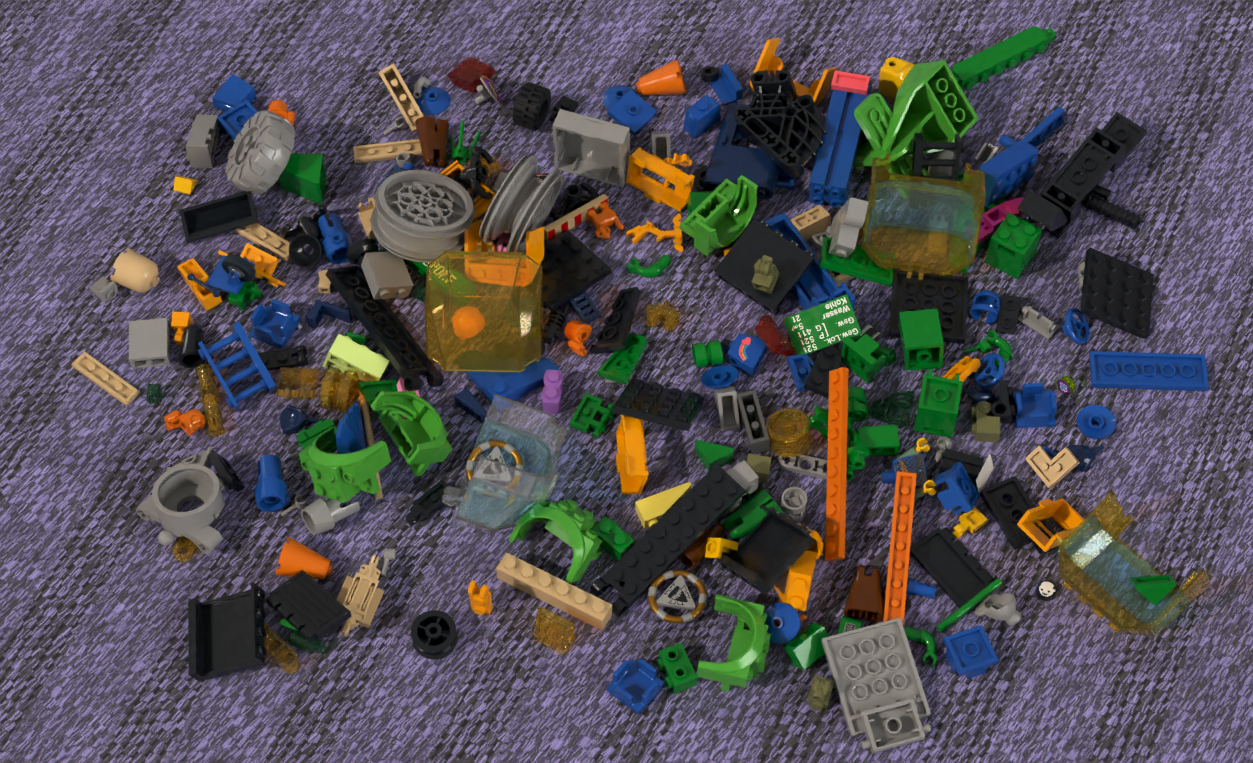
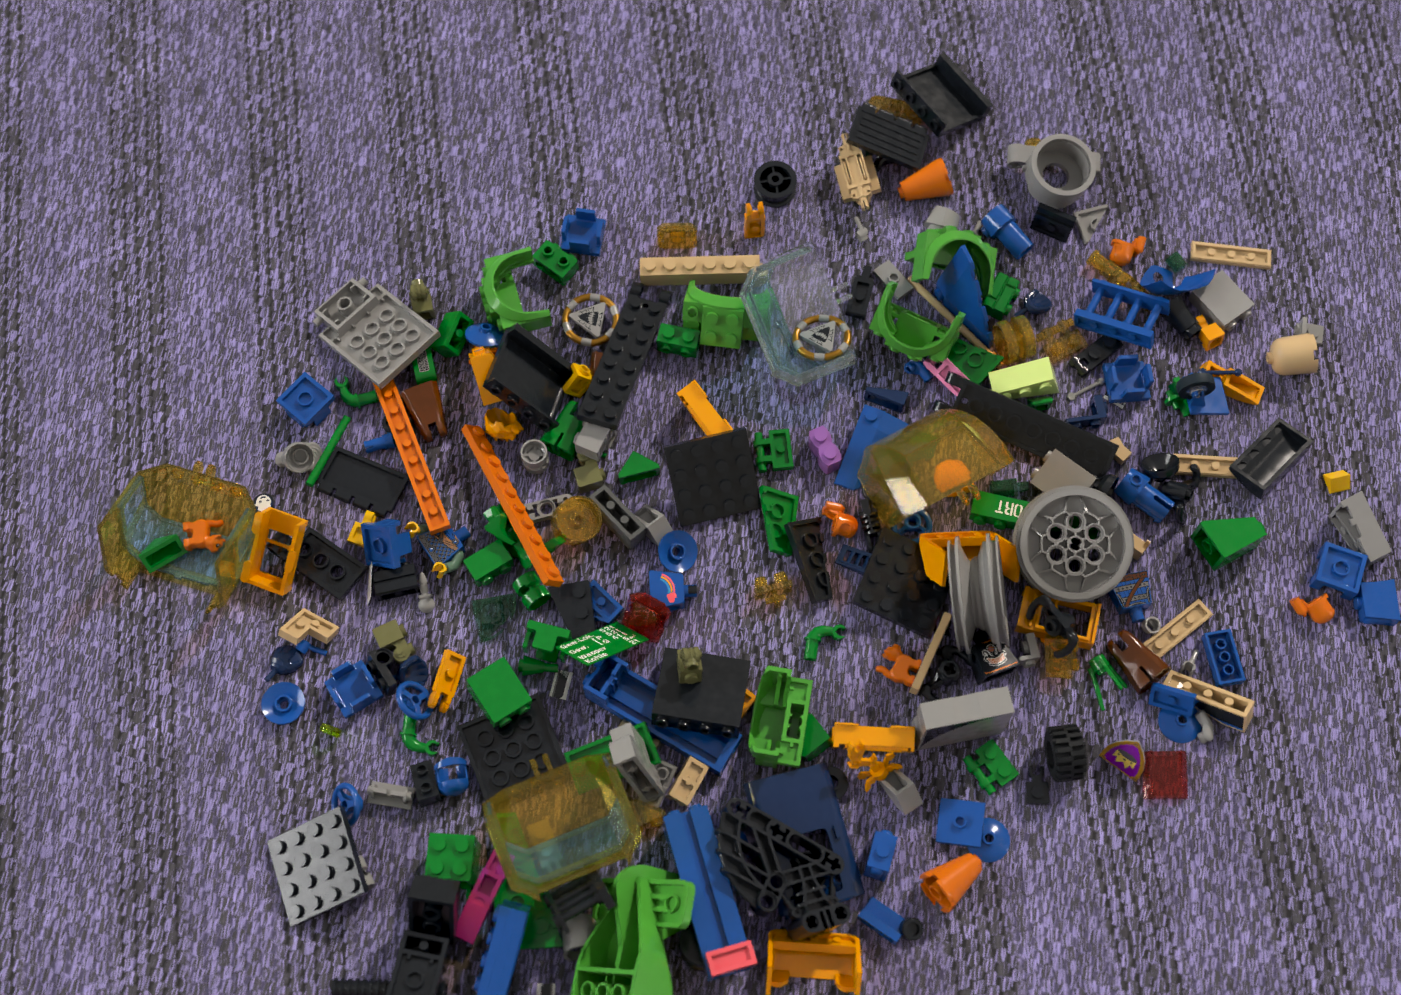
camera: 150 degrees right, 10 degrees up
(170, 361) = (1166, 287): none -> blue piece
(260, 152) = (1284, 522): light grey wheel -> none
(264, 263) = (1196, 429): light orange bracket -> none
(325, 339) = (1071, 396): none -> light grey hinge
(371, 117) = (1223, 658): none -> blue piece
(393, 502) = (888, 272): none -> light grey plate
(426, 103) = (1172, 699): none -> blue plate
(640, 232) = (817, 692): light orange piece -> none
(653, 508) = (658, 389): light yellow slope -> none
(707, 353) = (705, 567): green wheel -> none
(938, 405) = (443, 619): green container -> none
(983, 345) = (434, 734): green hand -> none
(1114, 579) = (200, 535): none -> orange animal
(1148, 371) = (251, 796): blue plate -> none

